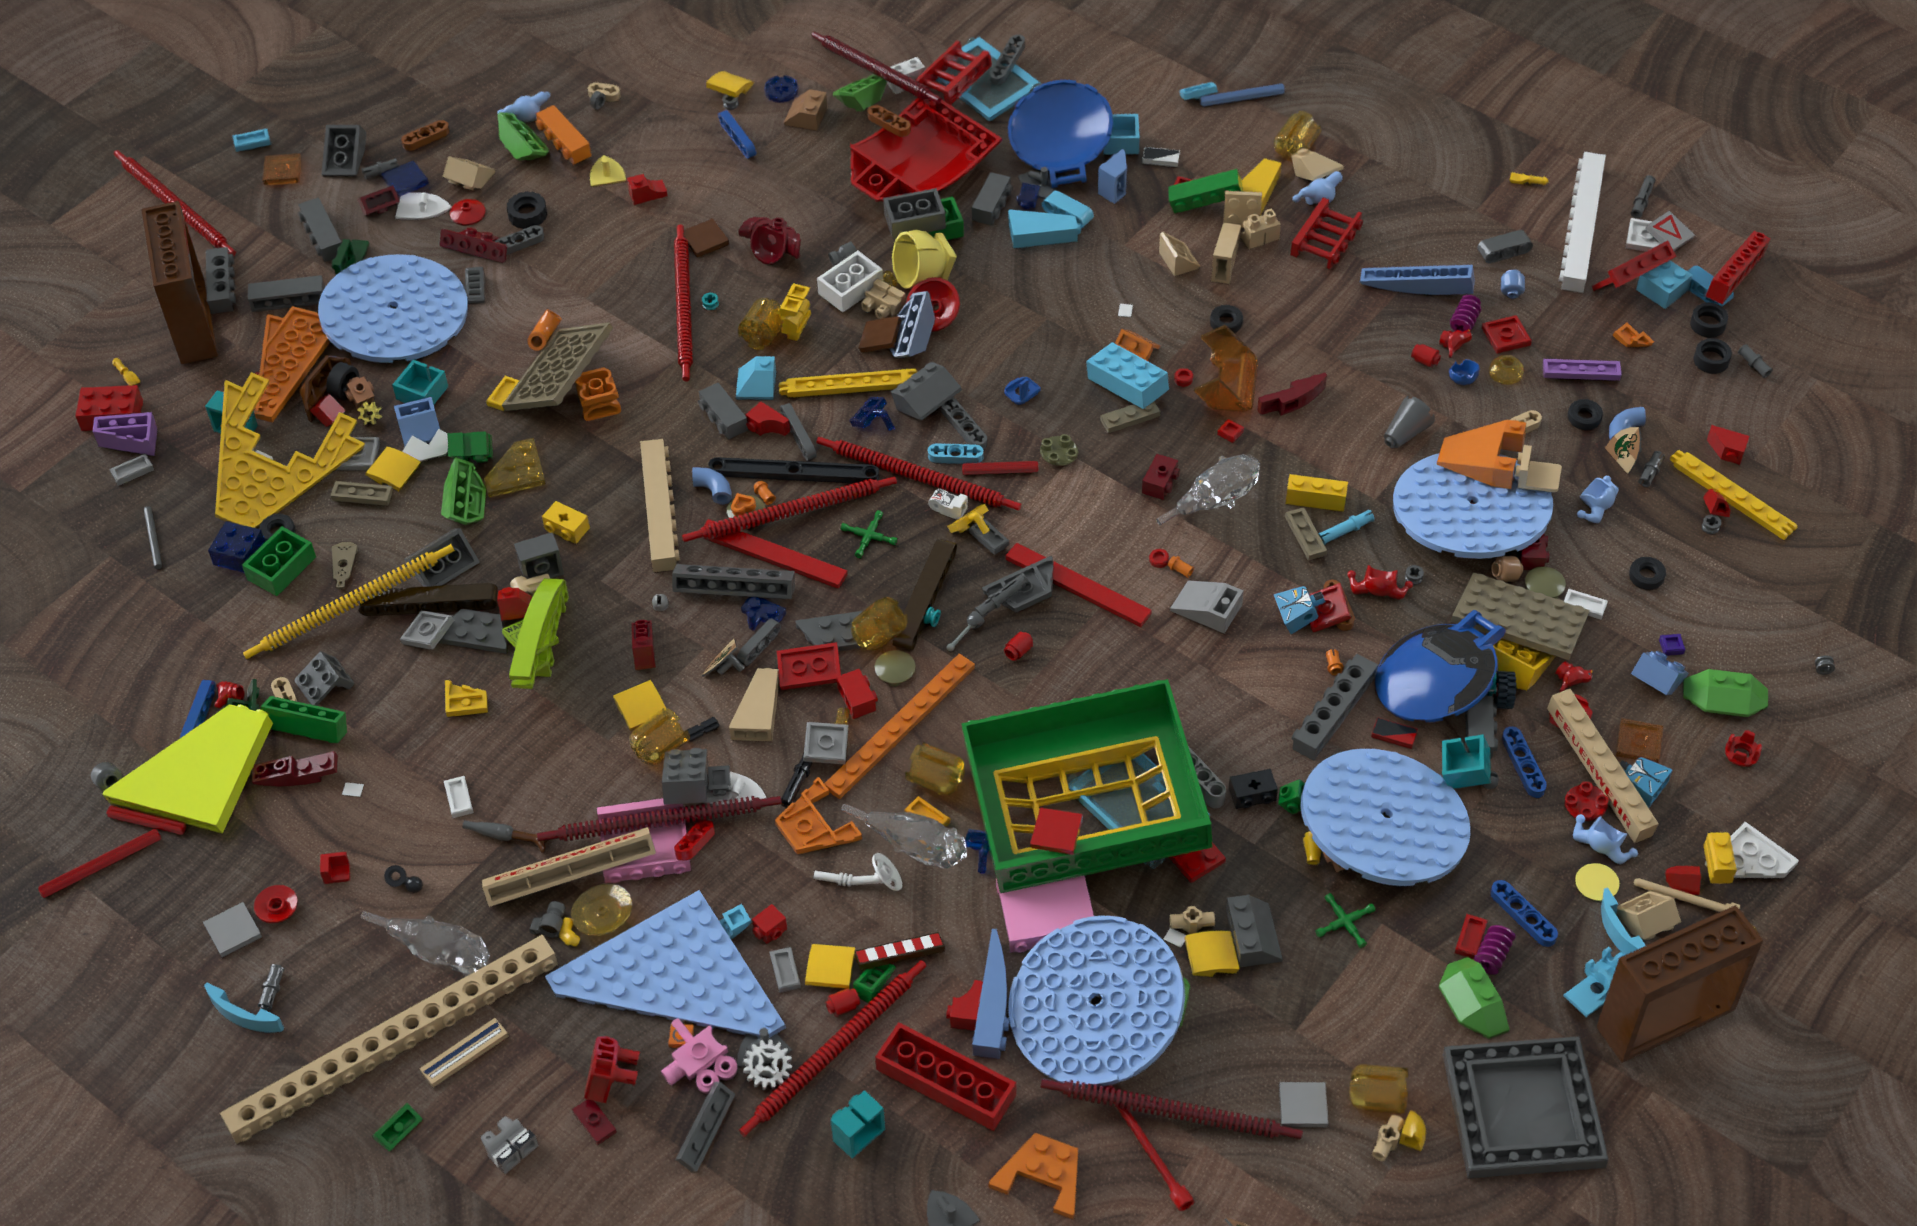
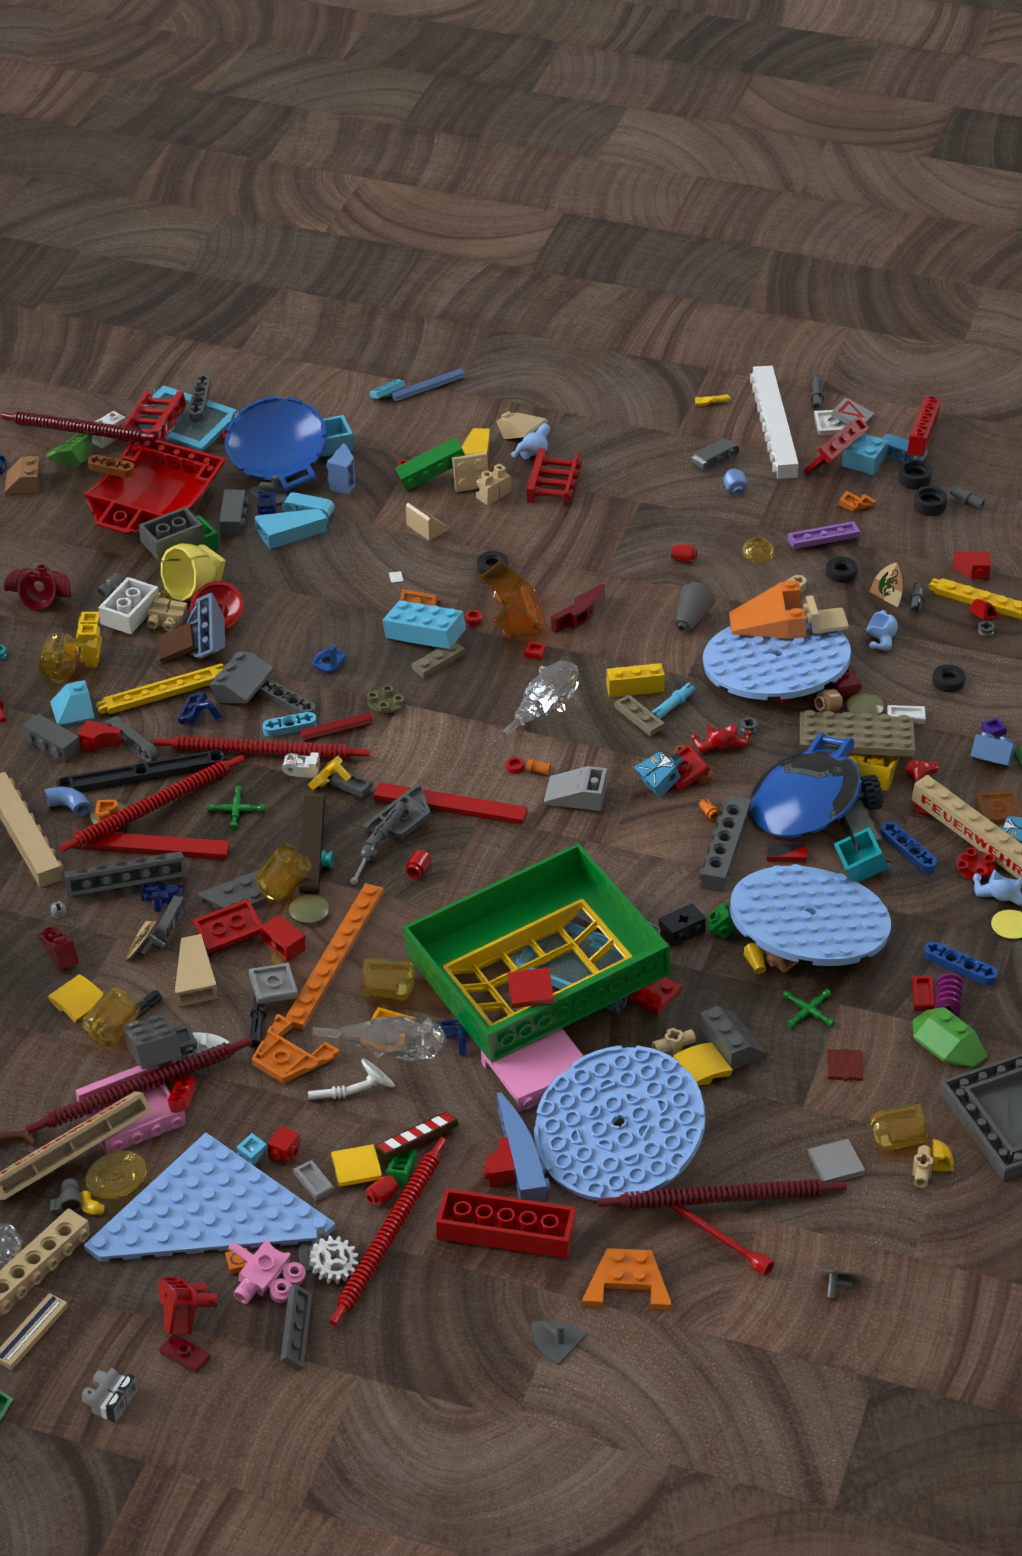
camera: 20 degrees left, 10 degrees down
(761, 489) = (117, 794): orange pin -> none
(857, 1124) = (442, 1282): teal piece -> none
(1160, 476) = (488, 699): dark red brick -> none
(1161, 156) = (375, 448): tile -> none
(1225, 253) = (470, 510): tan slope -> none
(1296, 134) = (492, 403): clear yellow cylinder -> none
(1357, 995) = (845, 1064): none -> clear red piece
(1422, 279) = (655, 494): medium blue slope -> none
(1454, 340) = (704, 535): red animal -> none
(1464, 373) = (724, 559): blue hair -> none
(1466, 313) = (705, 514): magenta piece -> none
(1506, 334) = (746, 523): red tile -> none
(1627, 418) = (879, 563): medium blue cylinder -> none

